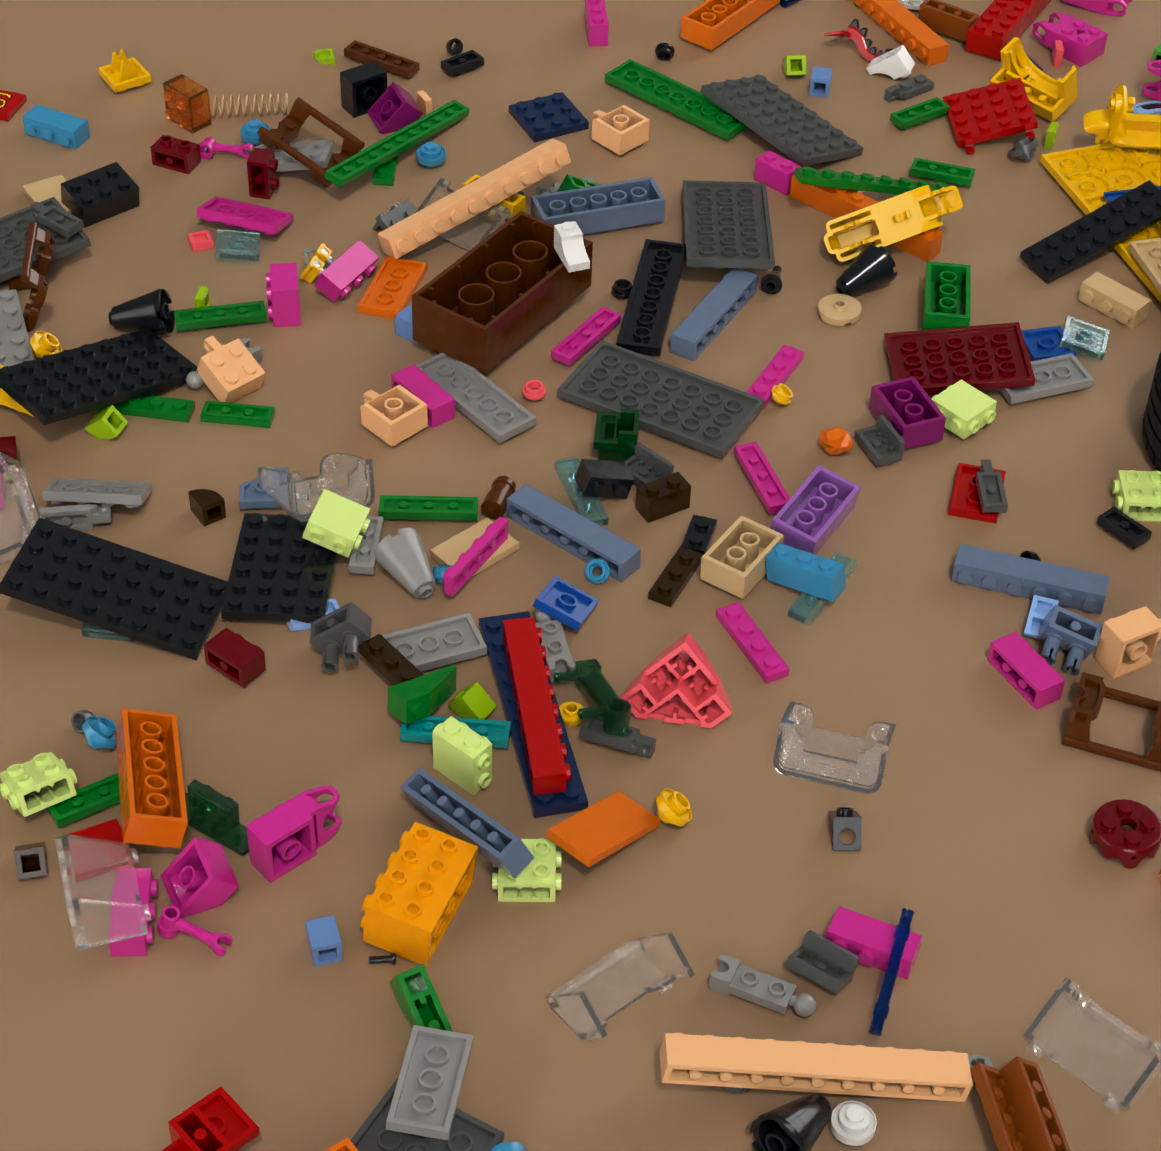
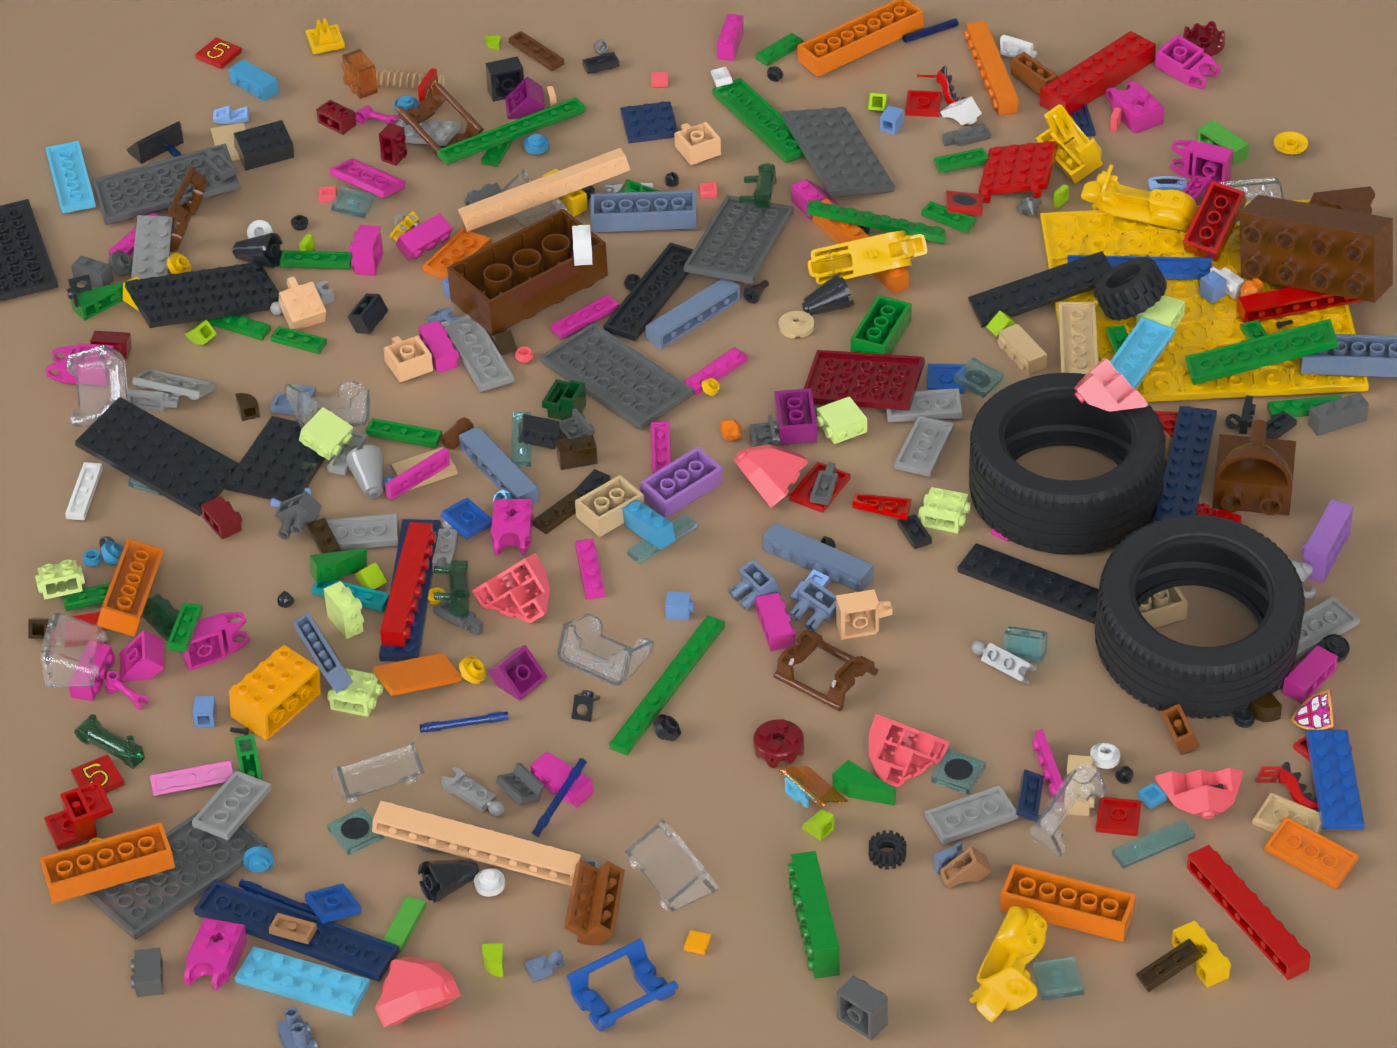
camera: 20 degrees right, 0 degrees up
(23, 653) = (84, 491): none -> white plate
(37, 171) = (227, 116): none -> light blue slope
(69, 744) = (92, 558): none -> dark azure plate
(134, 288) = (258, 228): none -> white plate
(169, 1006) = (124, 749): none -> clear green piece
(179, 276) = (299, 222): none -> black plate
(199, 1073) = (99, 769): none -> red tile
(262, 823) = (184, 627): none -> green plate
(278, 106) = (427, 85): none -> red tile
(318, 368) = (368, 313): none -> black brick
(346, 1048) = (191, 778): none -> plate
(368, 755) = (285, 600): none -> black hinge
(411, 357) = (442, 314): none -> sand blue plate
(505, 378) = (504, 342): none -> dark brown brick
(537, 72) = (659, 79): none -> coral tile
(607, 60) = (721, 76): none -> white tile
(607, 172) = (669, 179): none -> black hinge
(619, 1082) = (354, 831): none -> clear light blue tile
(628, 602) = (512, 524): none -> dark pink brick
(653, 28) = (778, 49): none -> green plate
(658, 176) = (708, 190): none -> coral tile
(662, 896) = (438, 726): none -> clear blue piece
(718, 157) = (764, 186): none -> clear green piece
(734, 800) = (517, 673): none -> magenta slope
(843, 62) = (923, 103): none -> red tile
(895, 670) = (679, 605): none -> medium blue brick
(918, 480) = (770, 470): none -> coral brick
(934, 784) = (667, 685): none -> green plate
(951, 155) = (963, 202): none -> red tile
(973, 840) = (666, 727): none -> black plate
(979, 621) = (754, 579): none -> sand blue brick
(1070, 501) = (884, 505): none -> red wing
(1072, 425) = (924, 446): none -> light grey plate
(1073, 276) = (1000, 322): none -> lime brick

